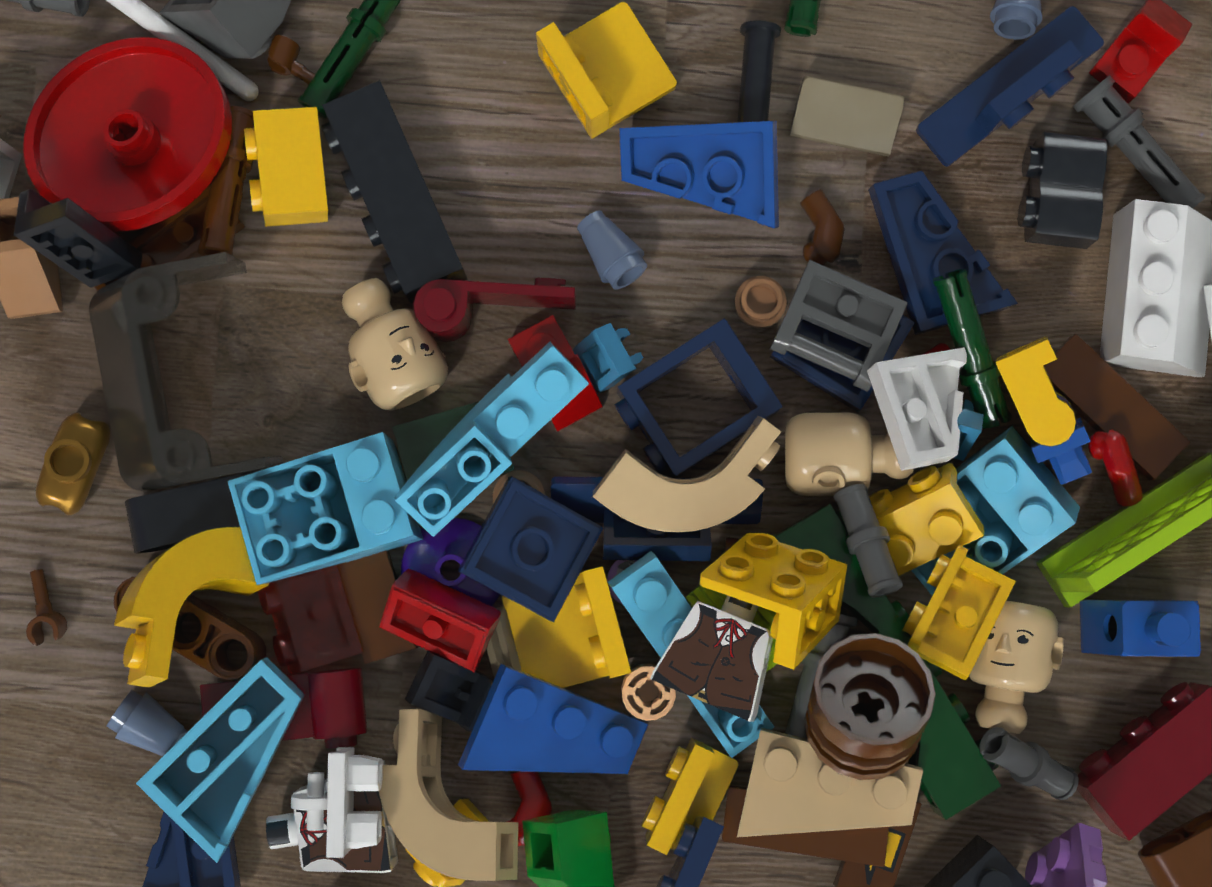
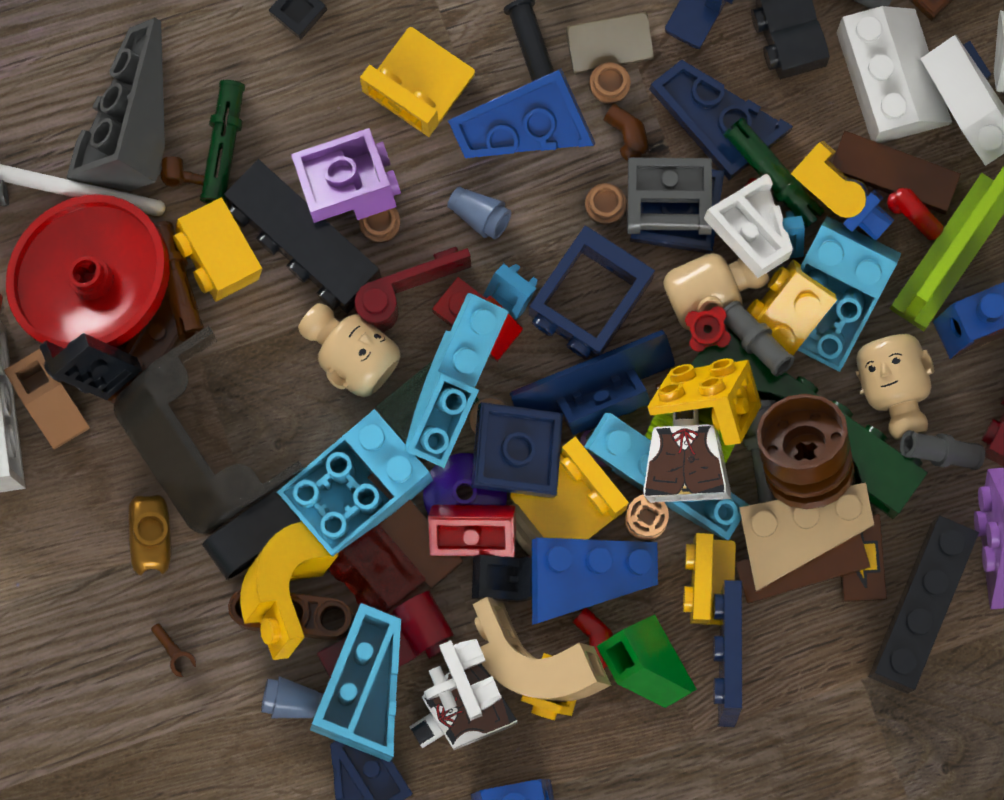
camera: 20 degrees left, 5 degrees down
(472, 145) = (347, 177): none -> medium lavender plate
(492, 213) = (381, 226): none -> medium nougat plate
(694, 503) = (595, 374): tan arch -> none
(826, 163) = (609, 83): none -> medium nougat plate
(827, 494) = (713, 318): none -> red plate
(959, 614) = (842, 361): yellow bracket -> none

